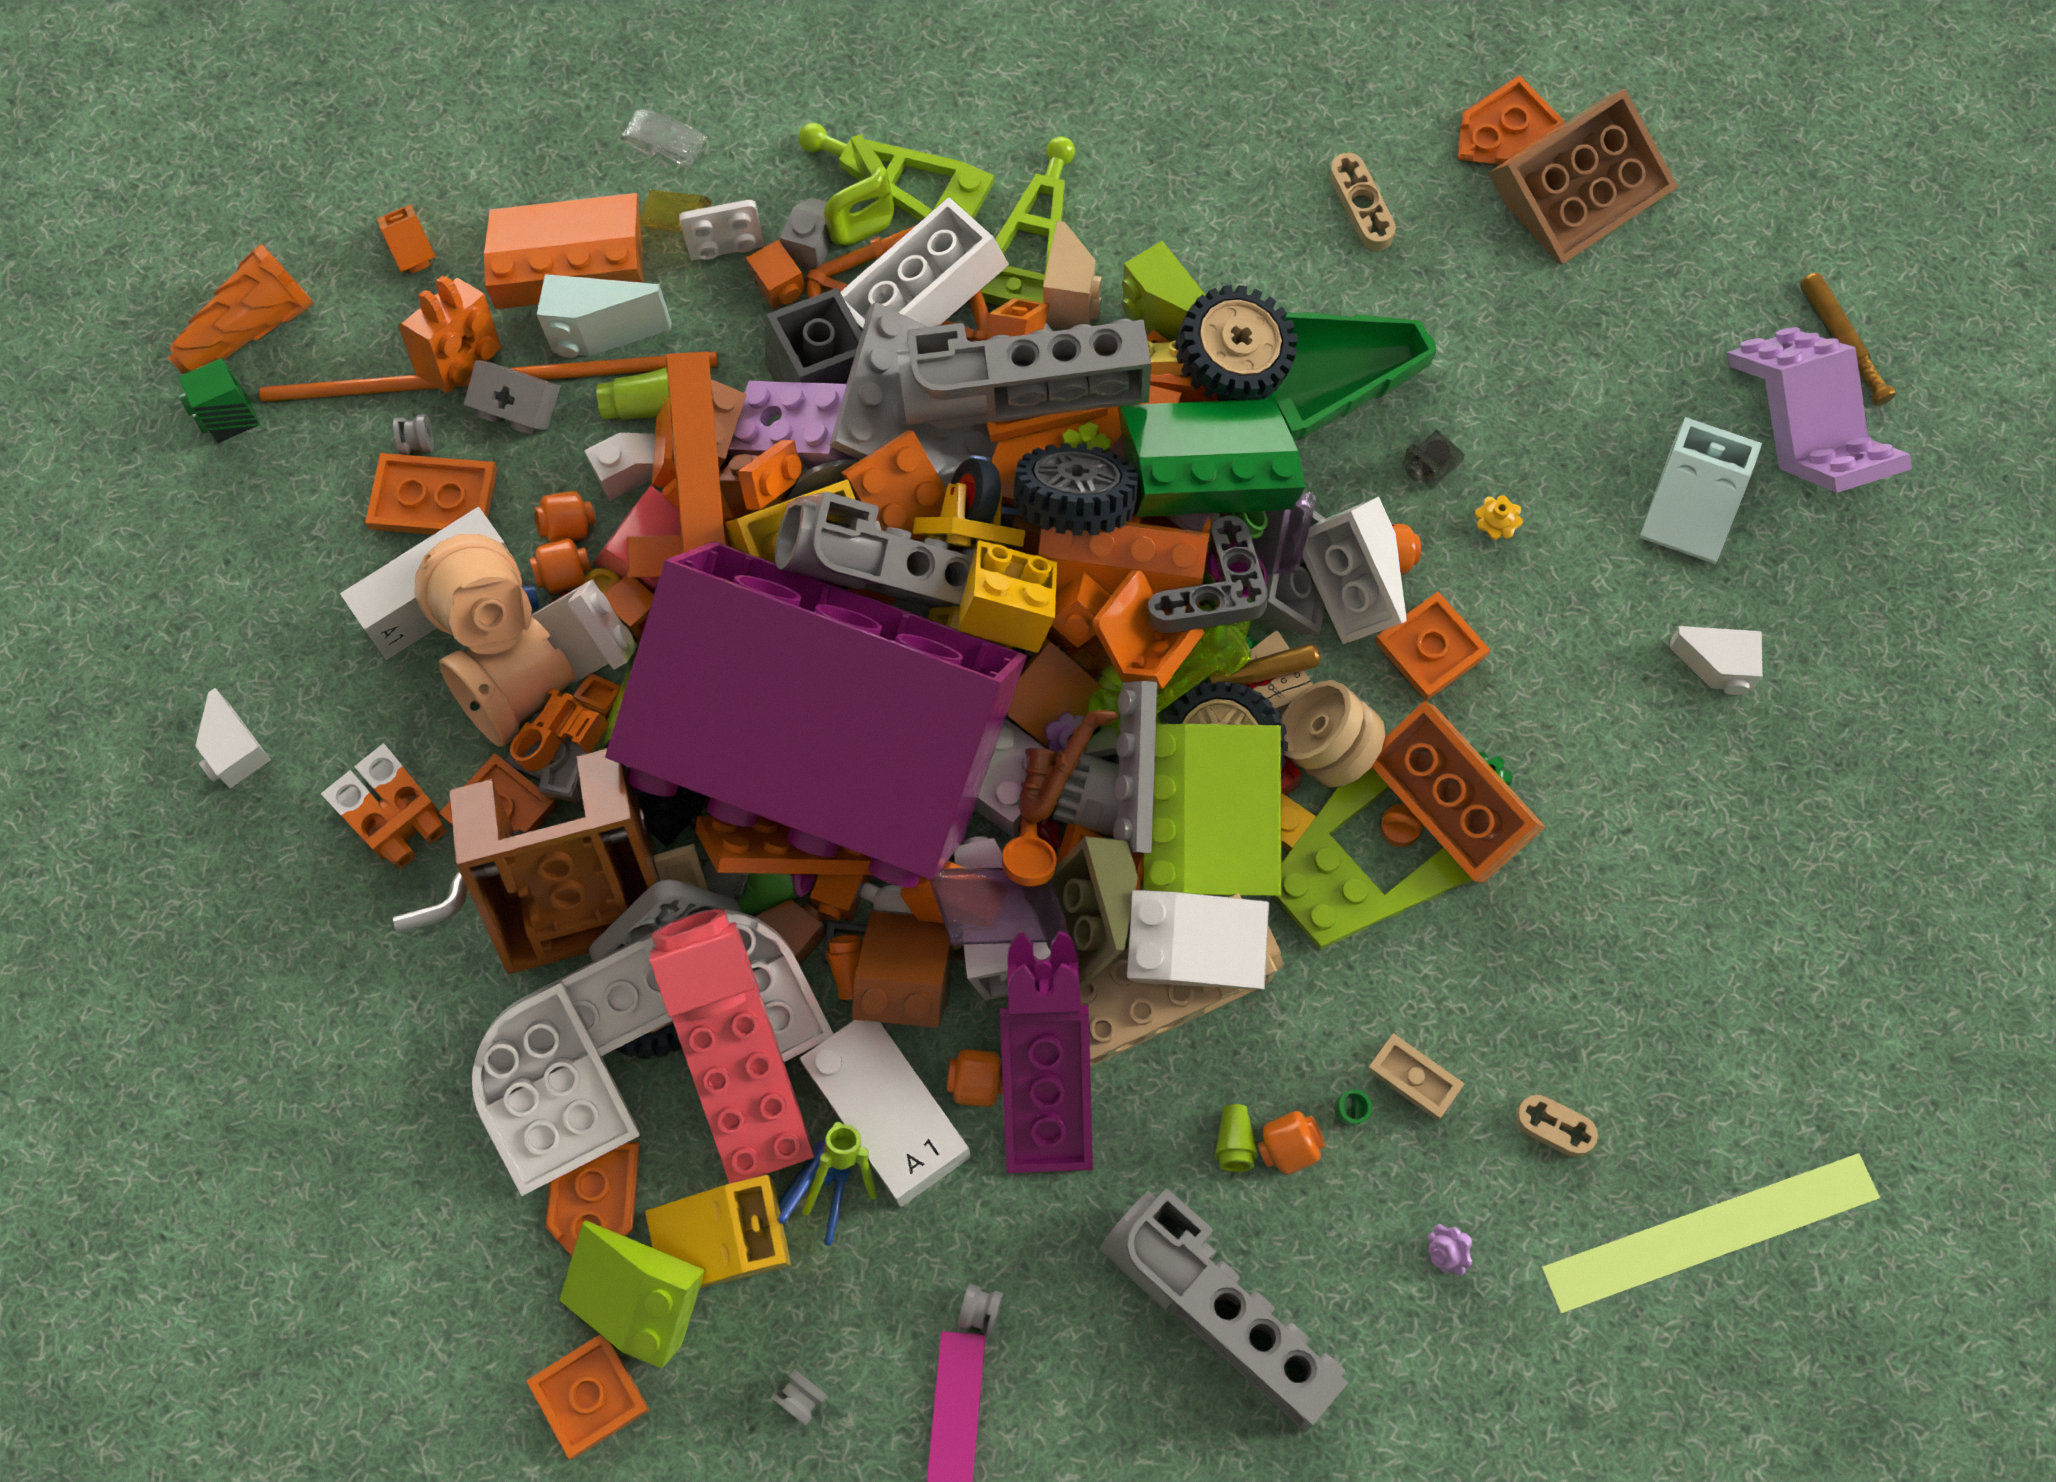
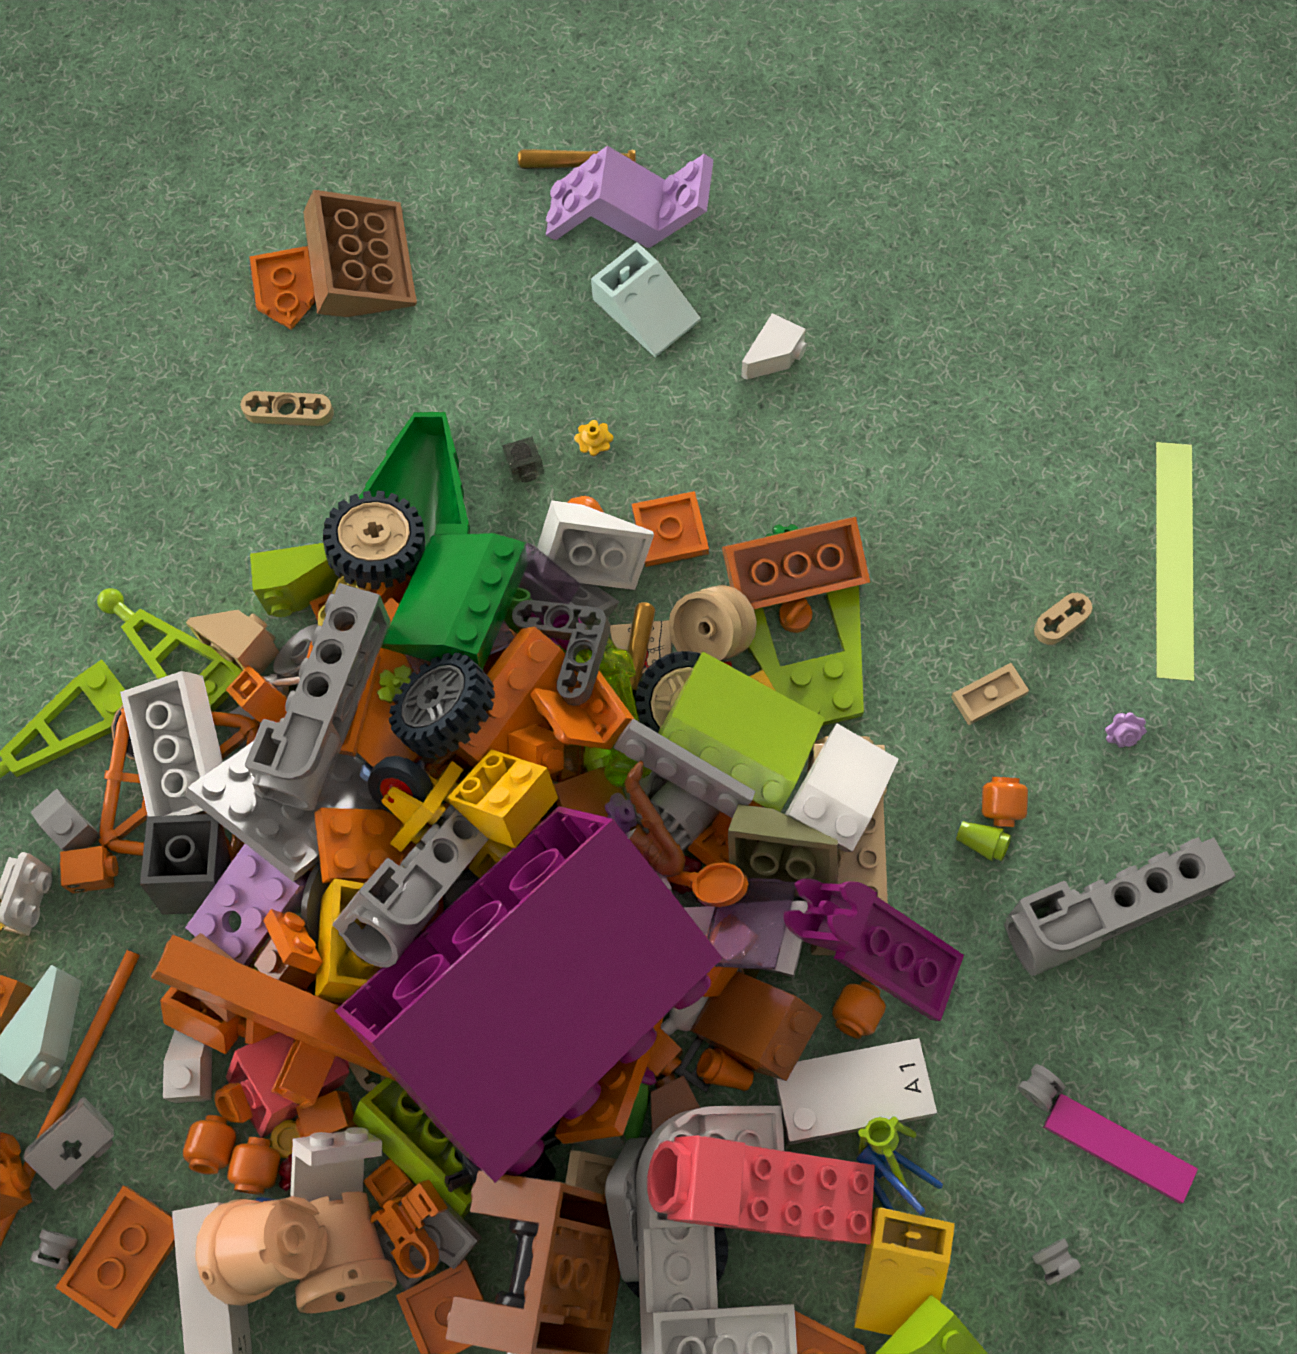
camera: 65 degrees left, 0 degrees up
(610, 518) = (233, 1103): none -> orange tile
(633, 396) = (133, 1029): lime plant -> none
(851, 228) = (58, 747): lime piece -> none
(1360, 1108) = (995, 747): green hinge -> none

